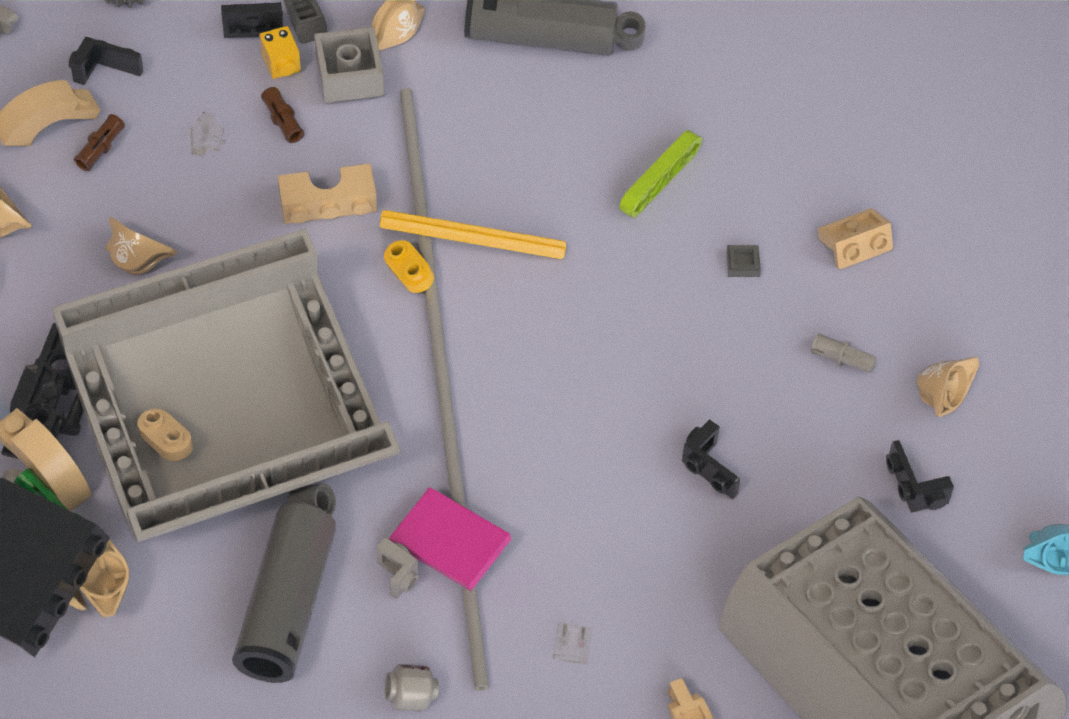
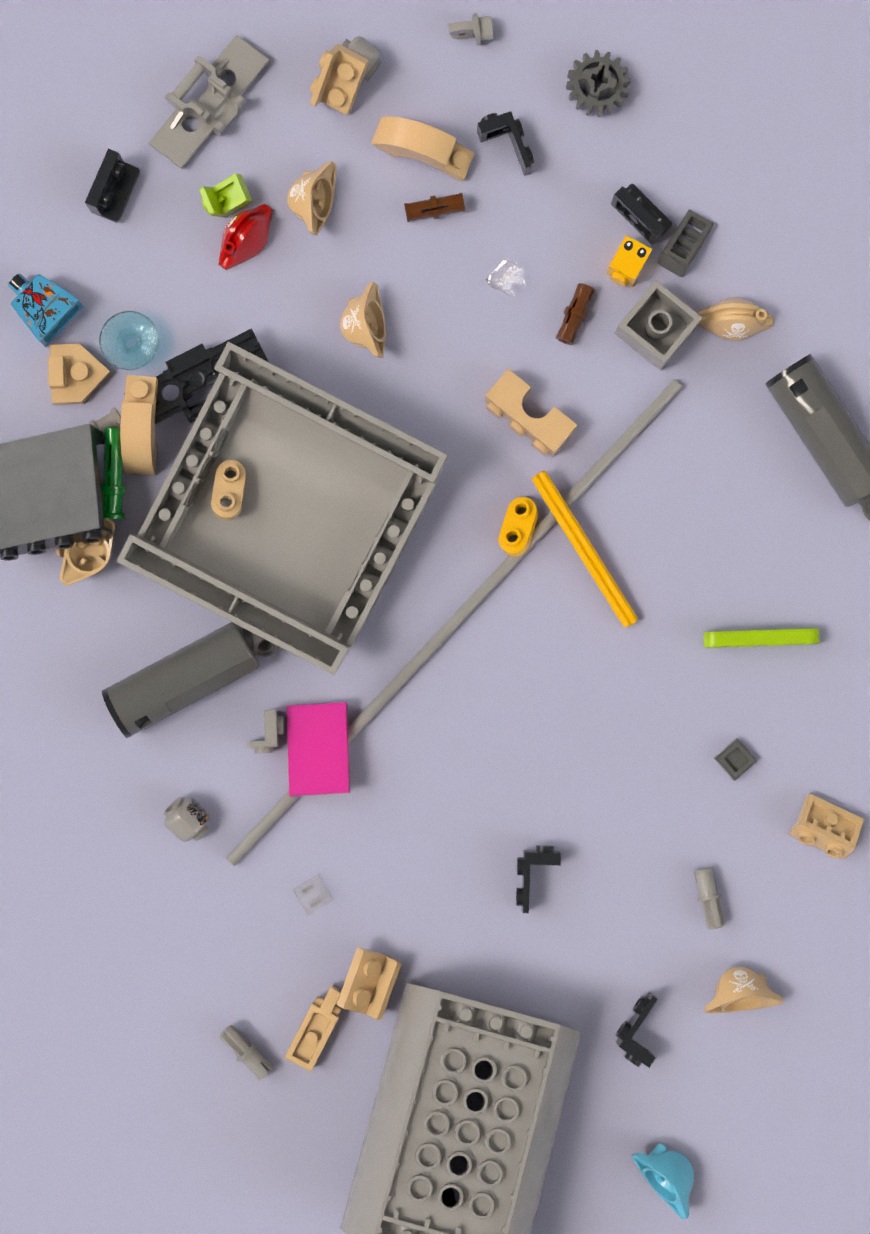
camera: 50 degrees right, 30 degrees up
(694, 650) = (369, 983): none -> tan bracket

